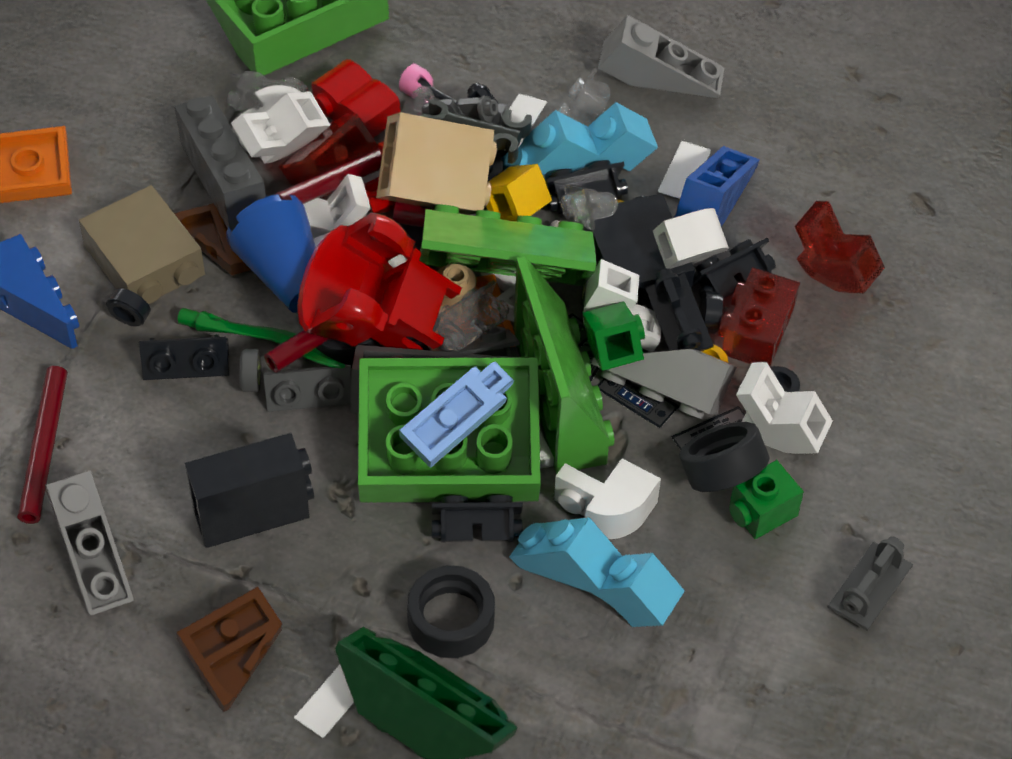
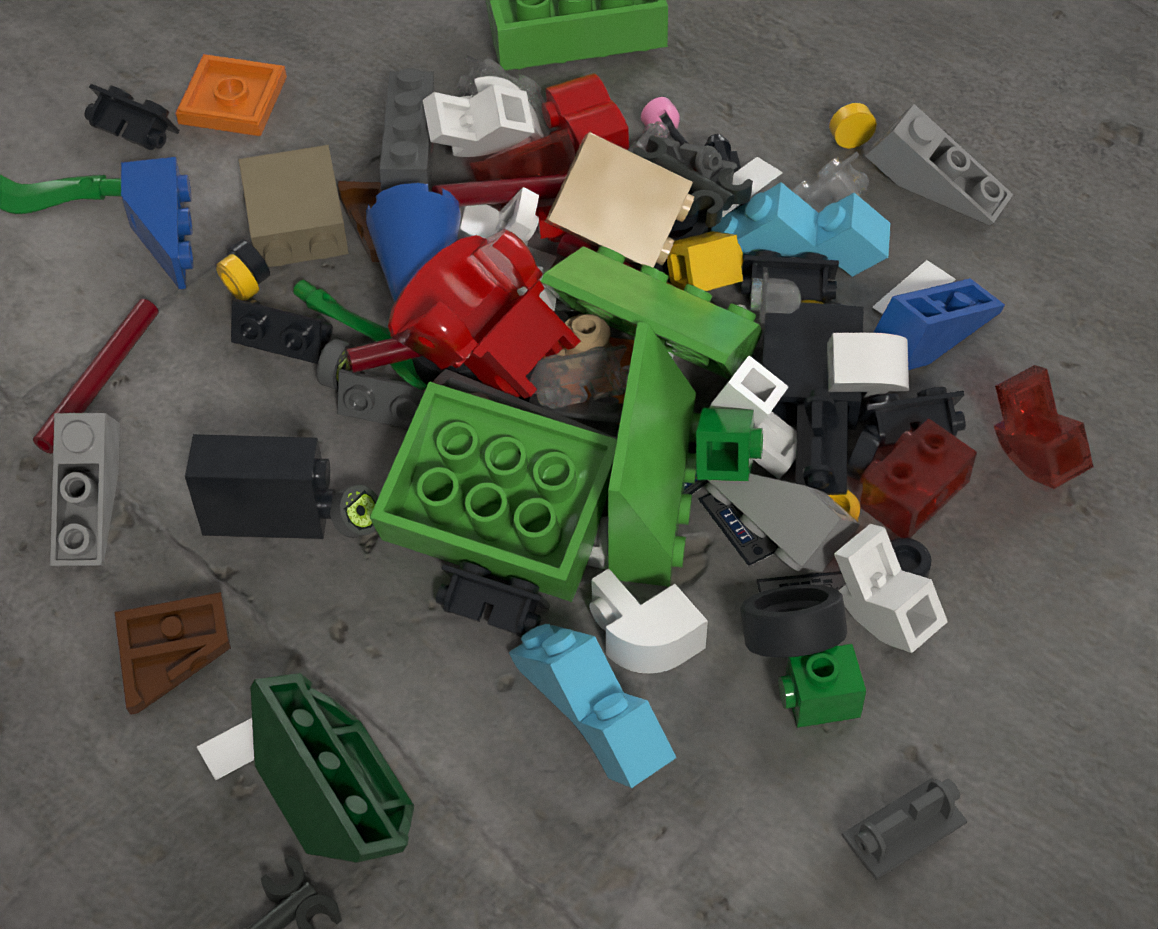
camera: 25 degrees right, 0 degrees up
(125, 323) = (237, 277): none -> yellow tile
(331, 485) = (352, 511): none -> tile
(446, 642) = (404, 655): black tyre -> none
(456, 413) = (502, 472): light blue hinge -> none
(576, 45) = (852, 125): none -> yellow tile

